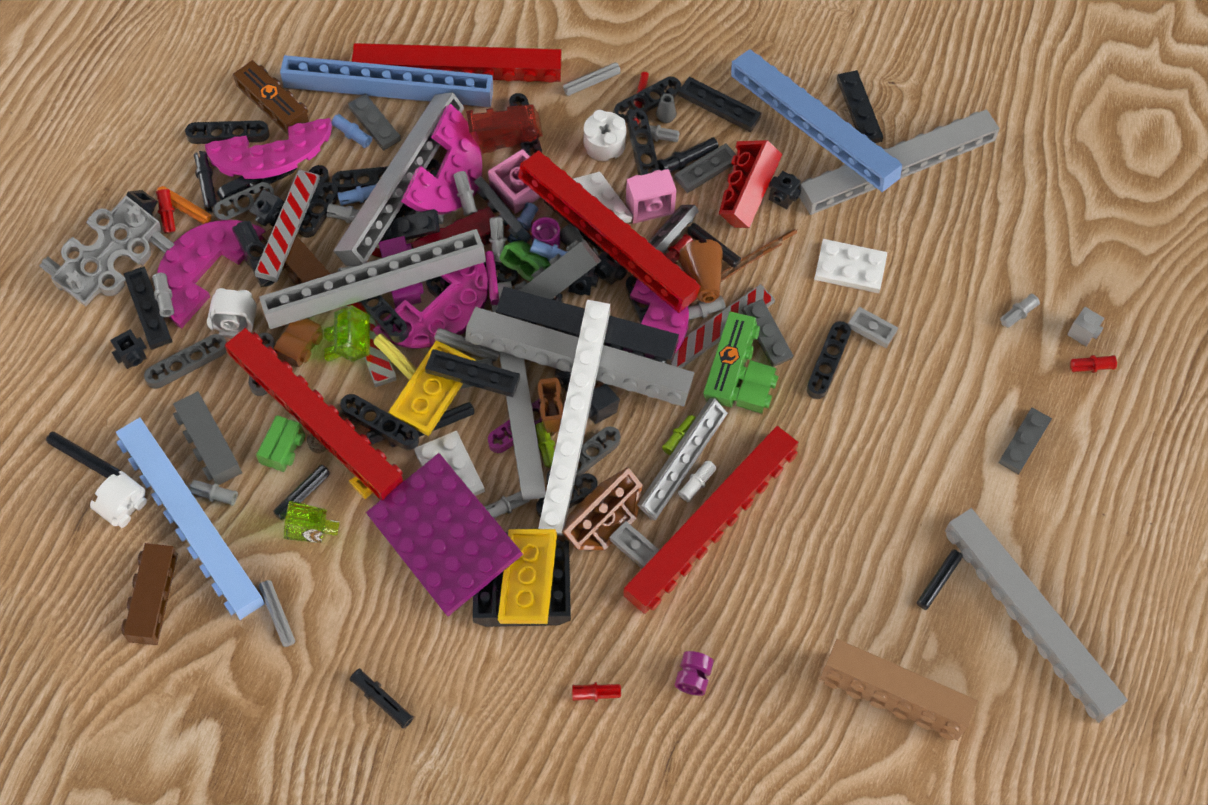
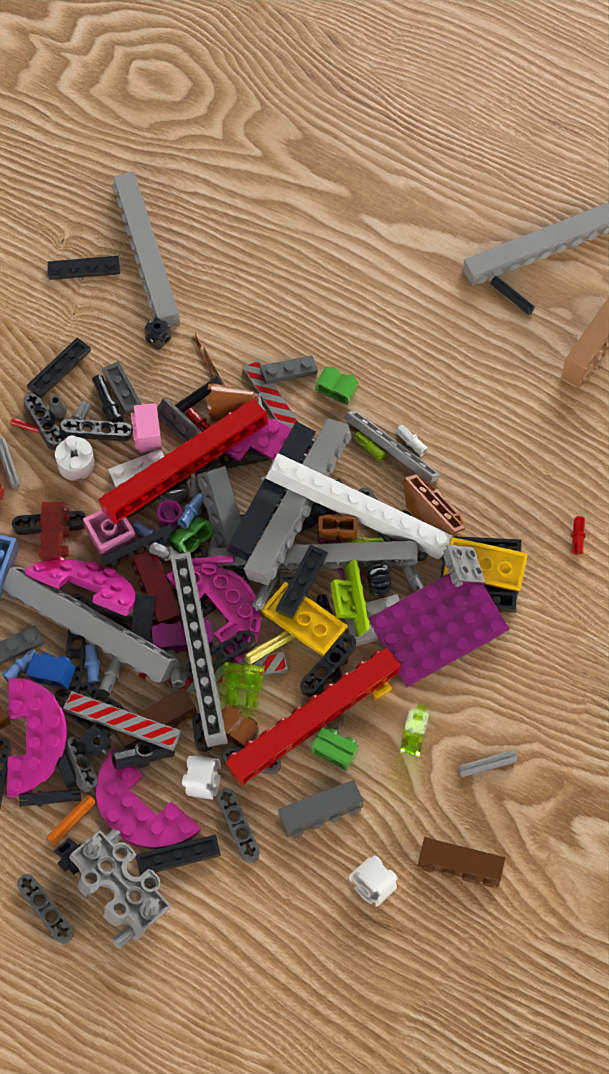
camera: 80 degrees left, 0 degrees up
(81, 455) = (322, 915): black axle -> none
(84, 196) = (47, 907): none -> dark grey beam
(128, 349) = (221, 863): black brick -> none
(163, 294) = (171, 837): light grey pin -> none
(166, 210) = (76, 832): red axle -> none
(190, 519) = (392, 828): light blue brick -> none
(213, 492) = (371, 807): light grey axle -> none
(302, 490) = (380, 736): black axle -> none
(344, 155) = (51, 670): none -> blue brick
(381, 698) = (563, 694): black pin -> none
(461, 428) = (349, 598): none -> lime bracket
(465, 193) = (118, 571): light grey axle -> none
(495, 461) = (378, 579): none -> black gear
(513, 543) = (463, 564): none -> light grey hinge
(633, 544) = (462, 491): light grey plate -> none
(695, 668) = (571, 464): magenta wheel -> none
(710, 520) = (447, 434): red brick -> none
(731, 359) = (312, 395): bright green brick -> none
(748, 181) = (146, 355): red wedge -> none
(816, 120) = (97, 296): medium blue brick -> none
(828, 359) = (320, 330): black beam -> none
(851, 266) = (235, 302): white plate -> none
(872, 327) = (295, 296): light grey plate -> none
(1020, 310) = (297, 197): light grey axle -> none
(1025, 440) = (407, 218): dark grey plate -> none
(1086, 326) = (321, 157): light grey brick -> none
(1093, 363) = (351, 160): red axle -> none

